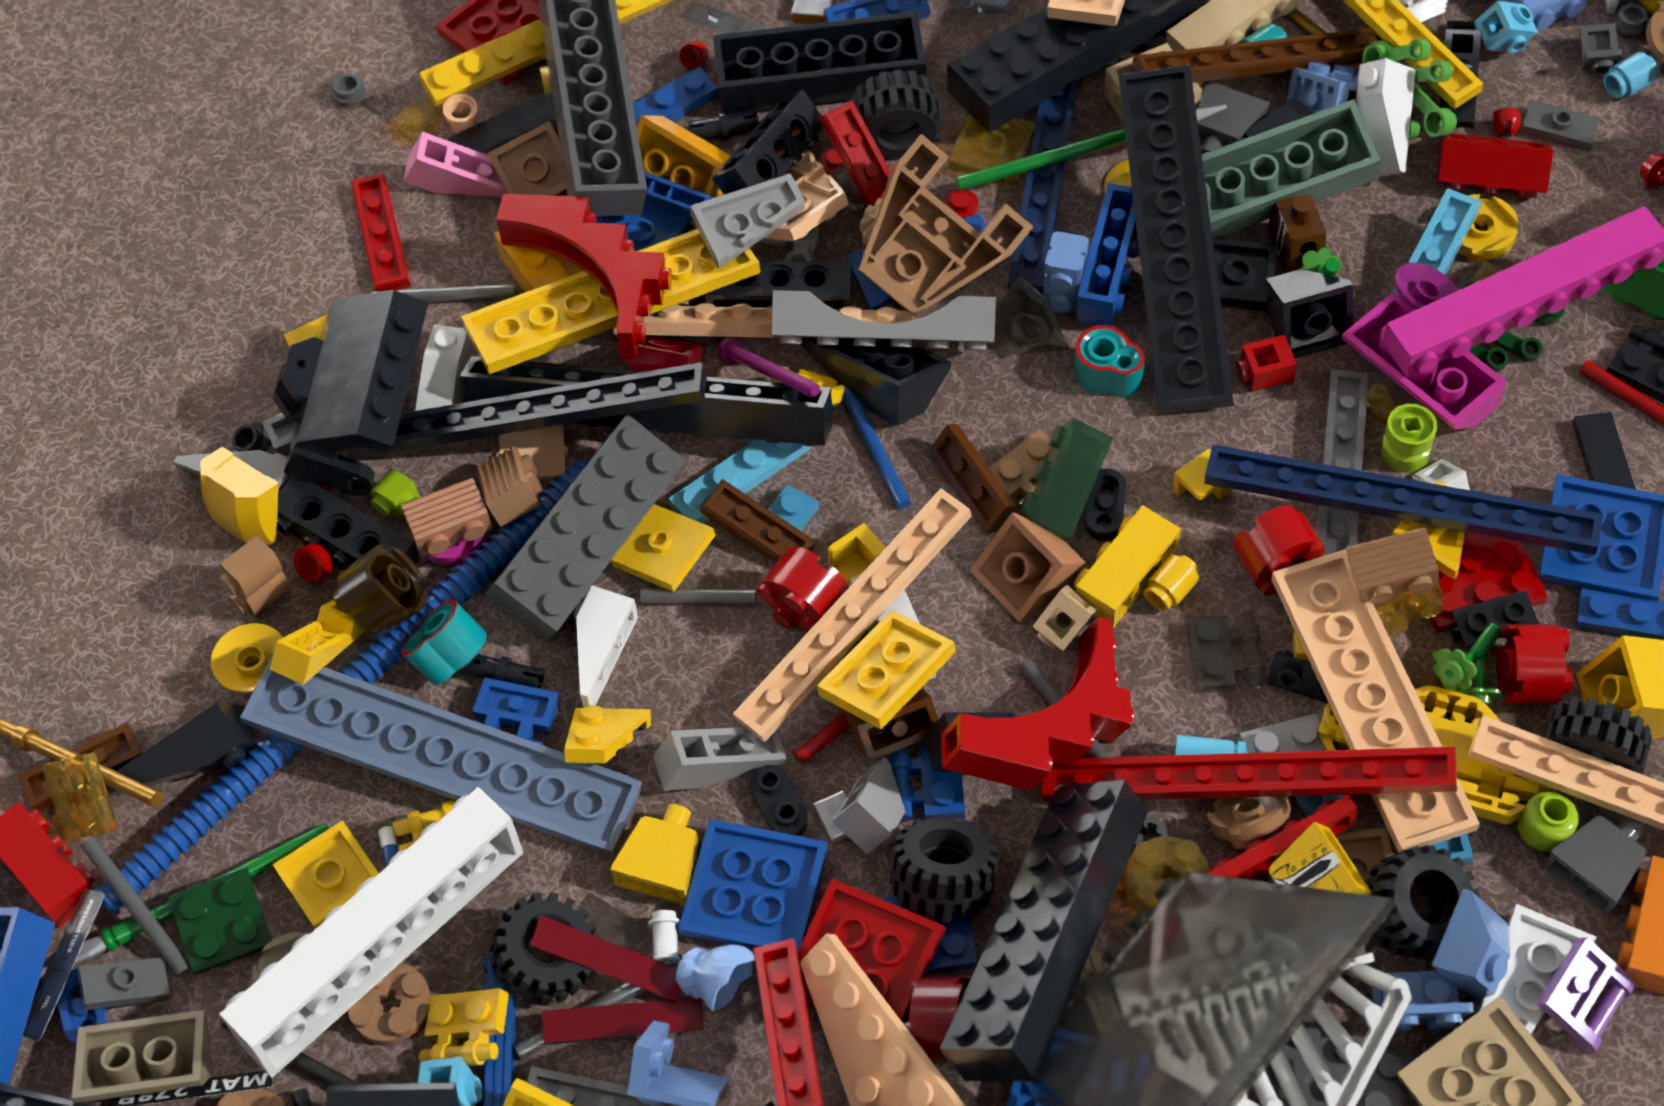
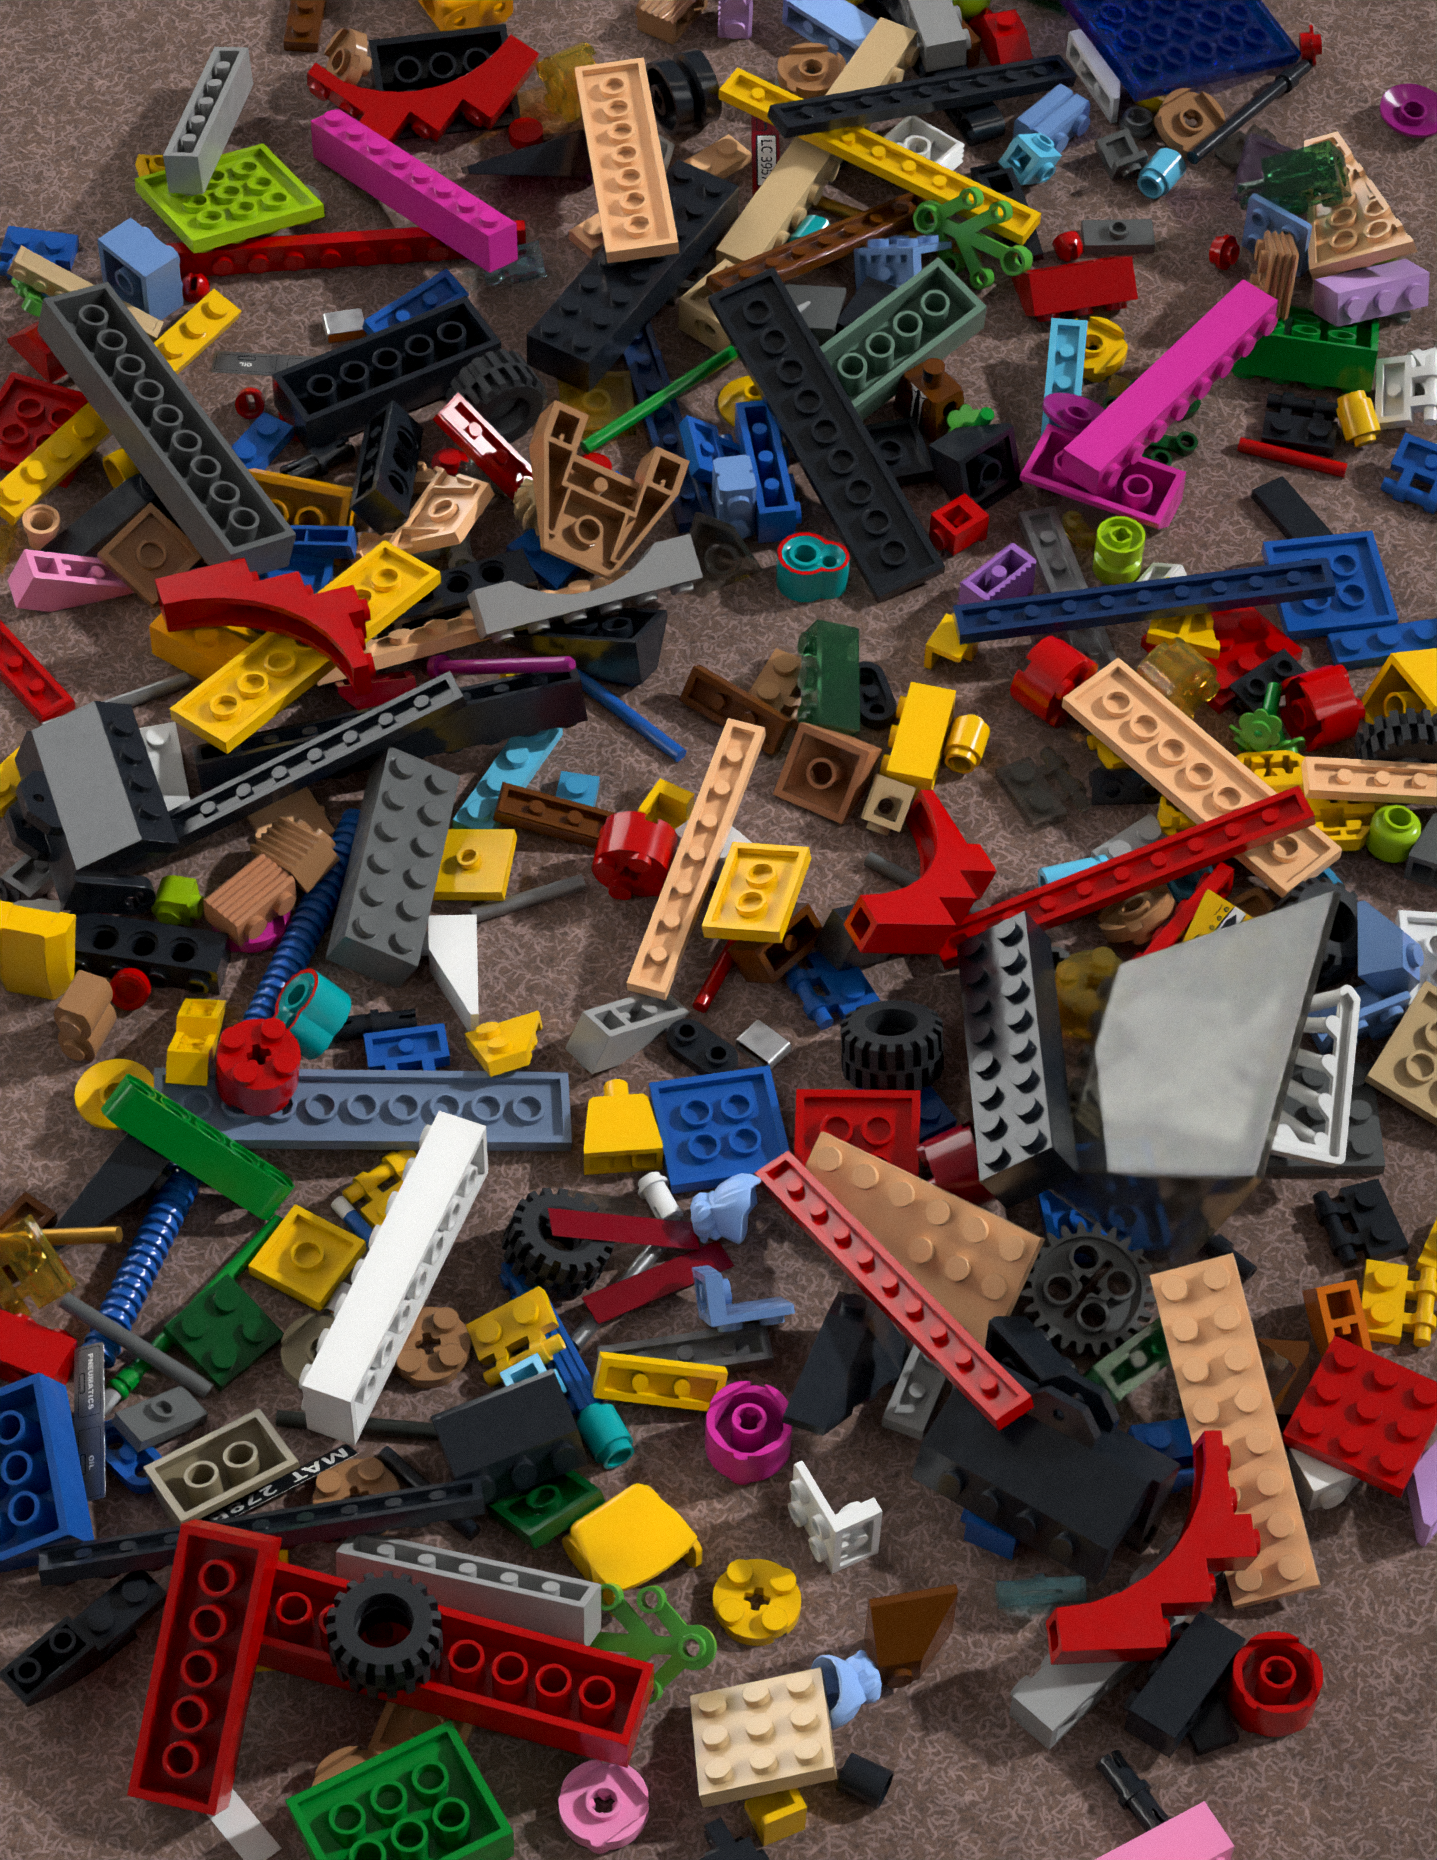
camera: 30 degrees left, 5 degrees down
(269, 739) = (197, 1147): none -> green beam
(349, 662) = (257, 1066): none -> red brick
(380, 590) = (229, 981): dark brown brick -> none
(746, 216) = (405, 532): light grey wing -> none
(872, 808) = (797, 1021): light grey slope -> none
(1066, 214) = (703, 446): none -> blue plate
(1276, 431) = (1002, 577): none -> medium lavender brick
(1386, 107) = (959, 246): white slope -> none
(1393, 566) = (1171, 654): medium nougat brick -> none

